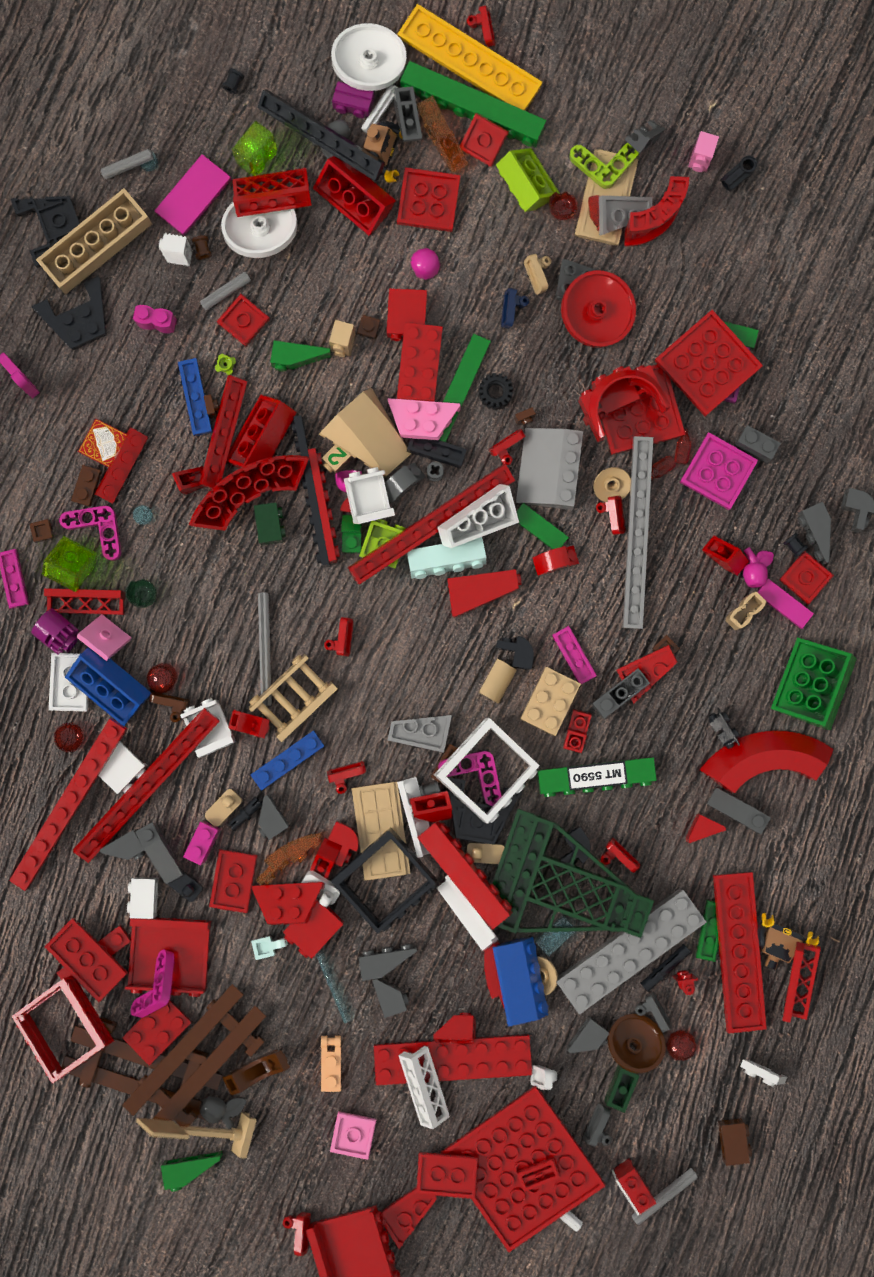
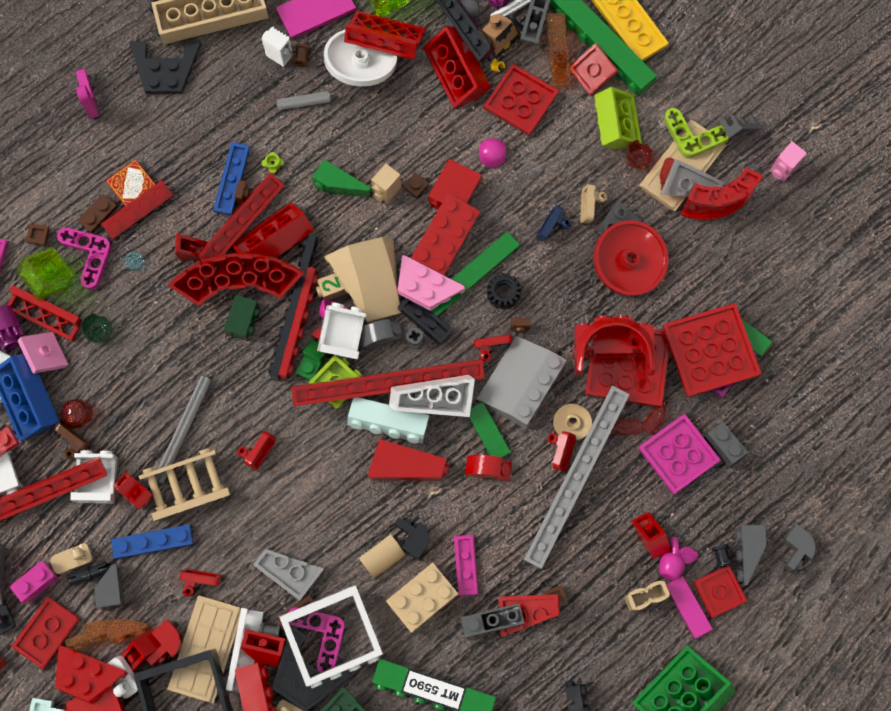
camera: 20 degrees right, 10 degrees down
(151, 319) = (229, 97): dark pink brick -> none
(243, 320) = (307, 132): red tile -> none
(577, 731) = (435, 638): red slope -> none
(738, 173) = (812, 195): black piece -> none

